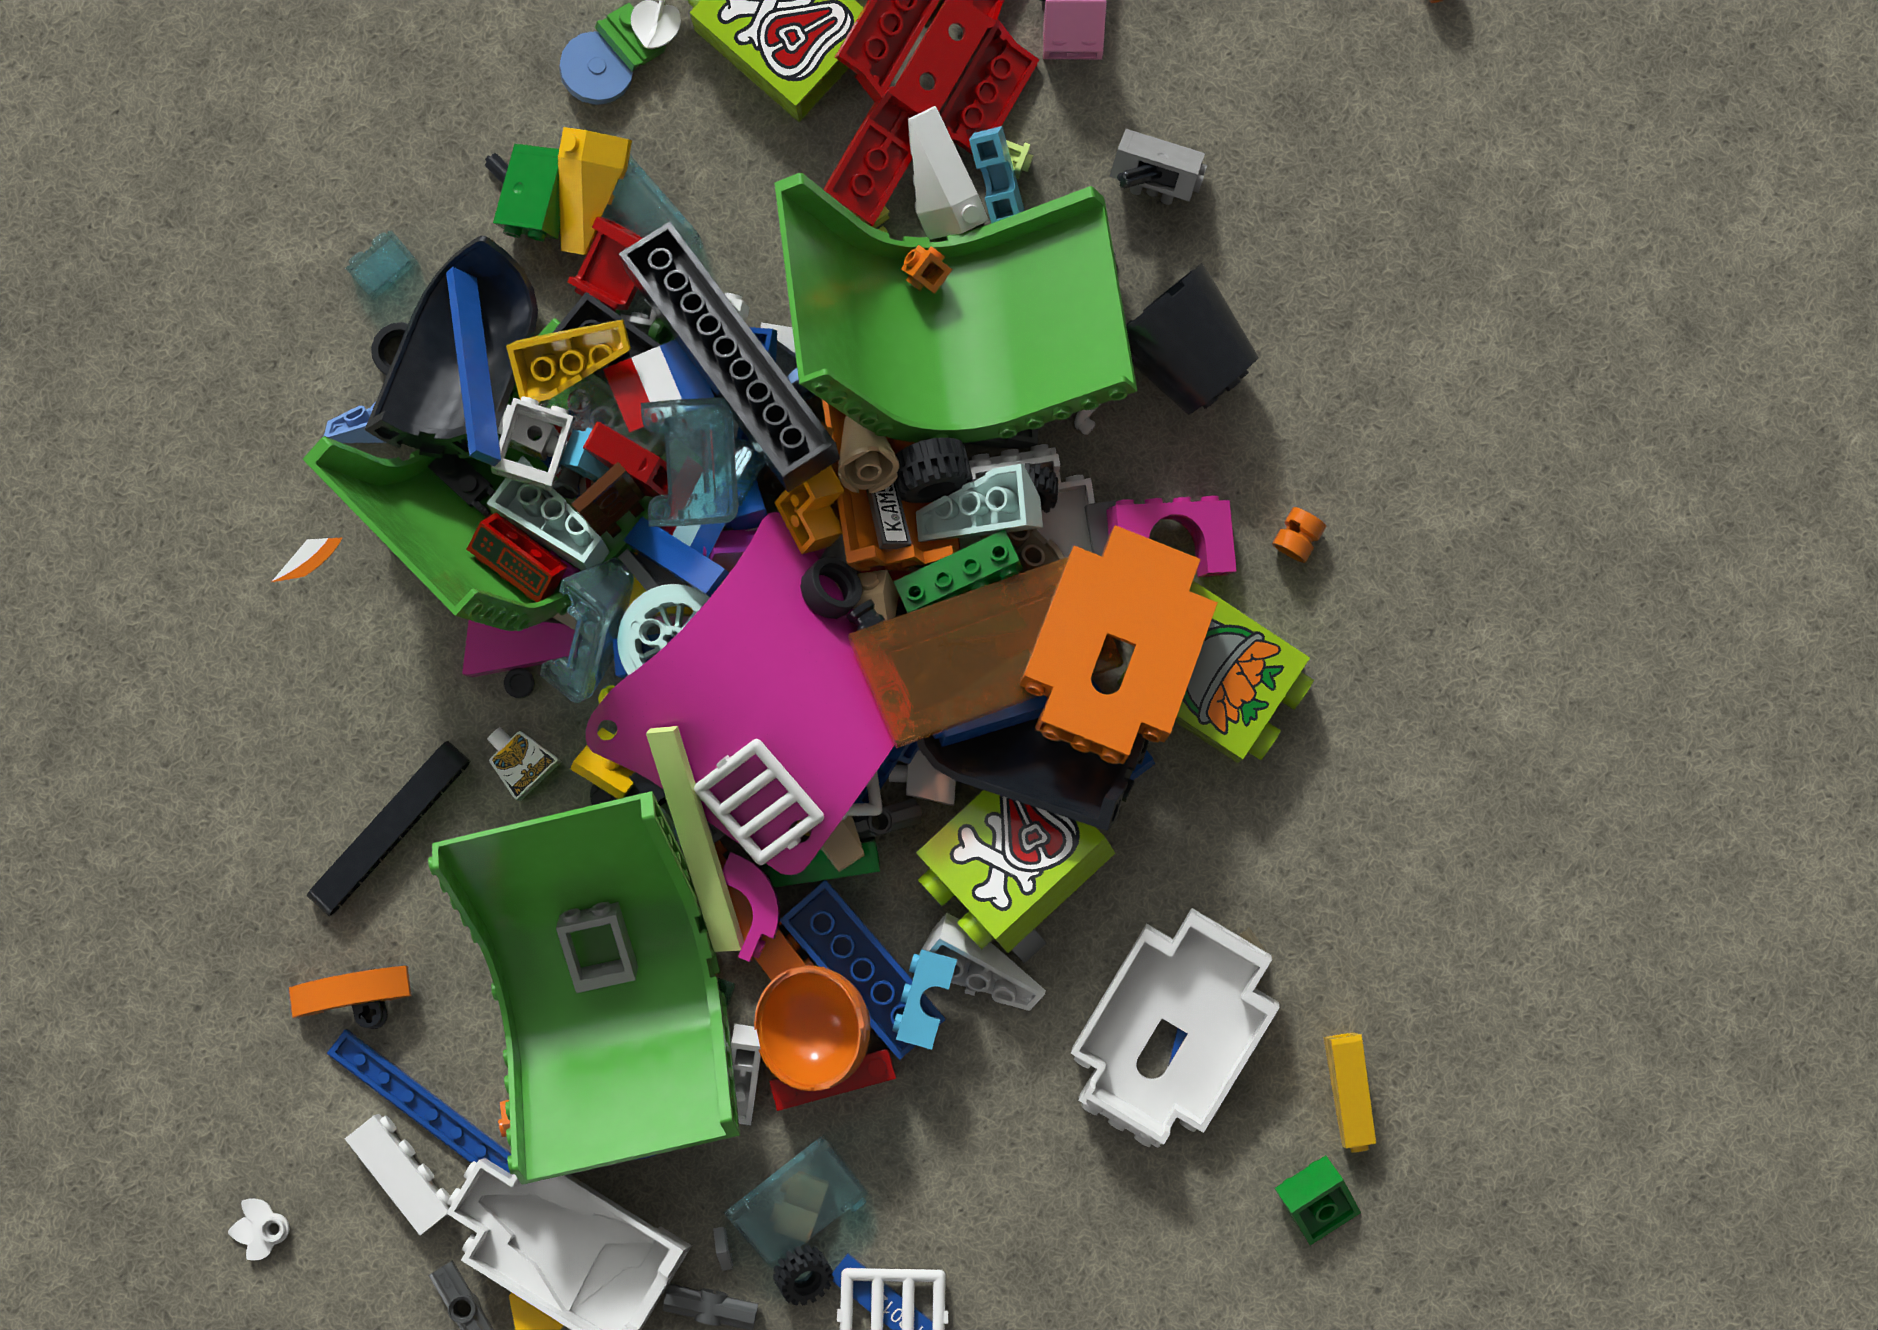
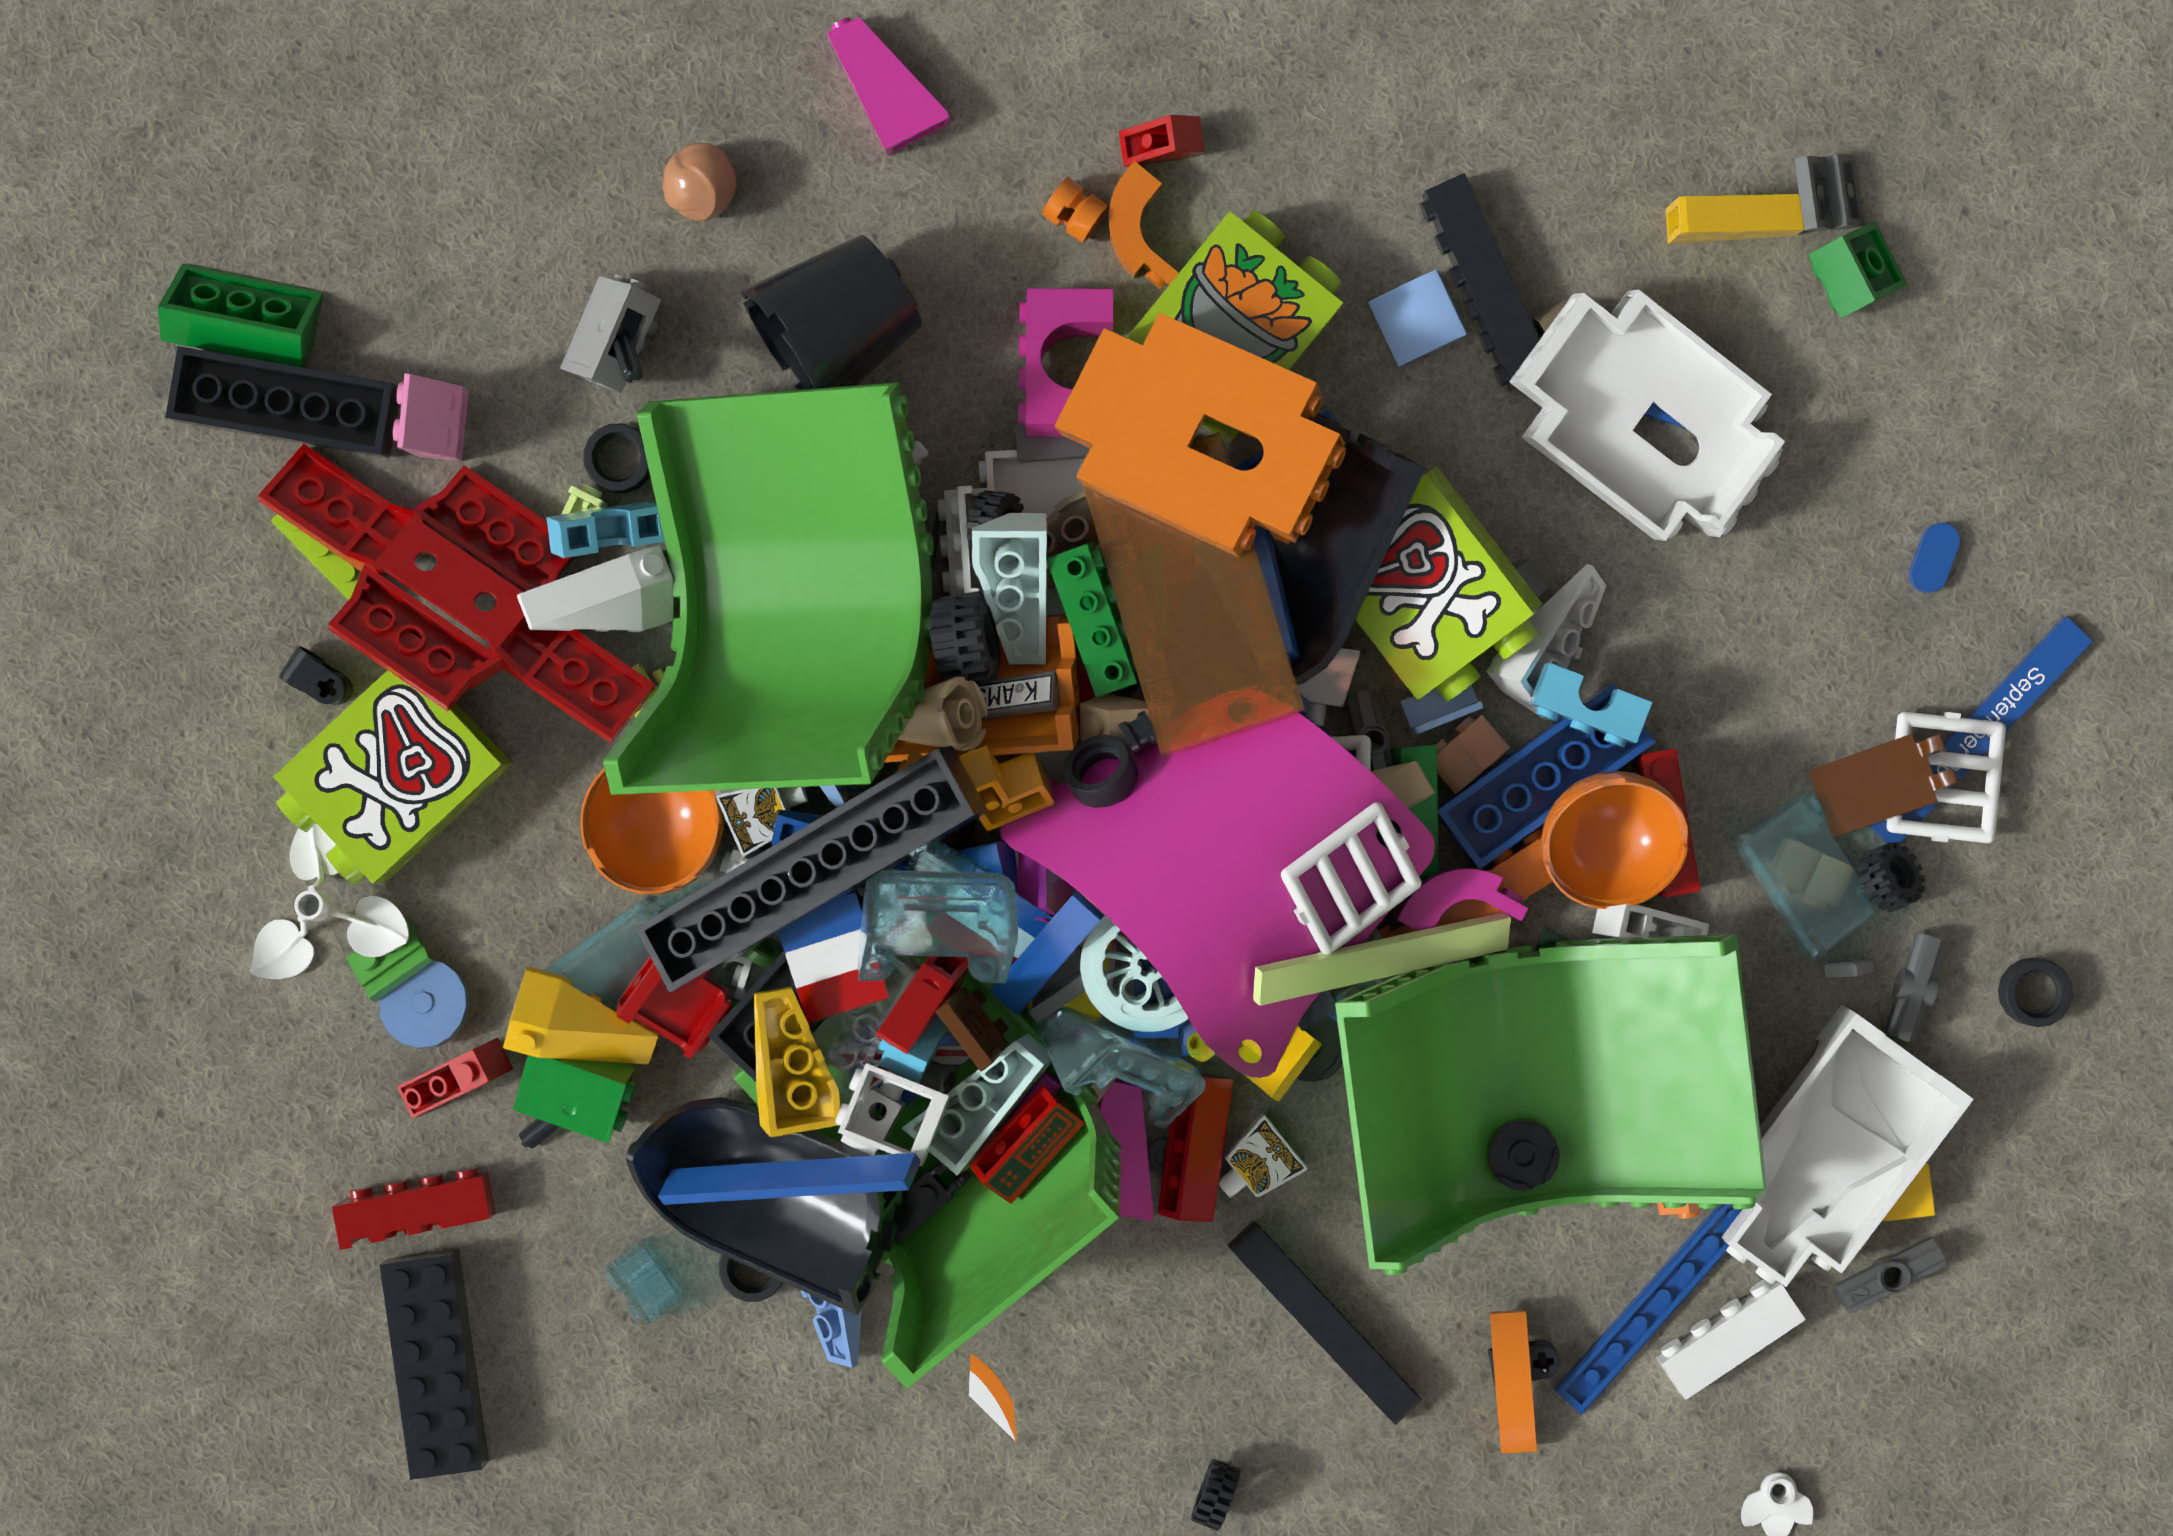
camera: 90 degrees left, 5 degrees up
(237, 748) = (1215, 1494): none -> black tyre
(302, 101) = (434, 1364): none -> black brick
(428, 72) = (413, 1207): none -> red wedge
(522, 706) = (1196, 1154): none -> red brick
(537, 97) = (455, 1077): none -> red slope
(542, 981) = (1523, 1154): none -> black tile
(604, 973) = (1521, 1083): light grey window -> none
(744, 234) = (650, 838): none -> orange piece
(772, 311) = (755, 811): none -> torso
(876, 903) = (1468, 752): none -> nougat brick
(881, 1258) = (1880, 783): none -> reddish brown tile
(909, 869) = (1434, 711): none -> light blue panel
(925, 268) = (714, 625): orange brick -> none
(1047, 162) = (593, 469): none -> black tyre
(1079, 1290) = (1934, 557): none -> blue tile
(1238, 829) = (1418, 318): none -> light blue slope
(1282, 878) = (1481, 274): none -> black brick
(1290, 226) = (699, 182): none -> nougat piece
(1302, 577) = (1128, 202): none -> orange arch
(1364, 602) = (1162, 140): none -> red slope
(1379, 373) = (889, 93): none -> dark pink slope
(1380, 1168) = (1829, 192): none -> dark grey slope

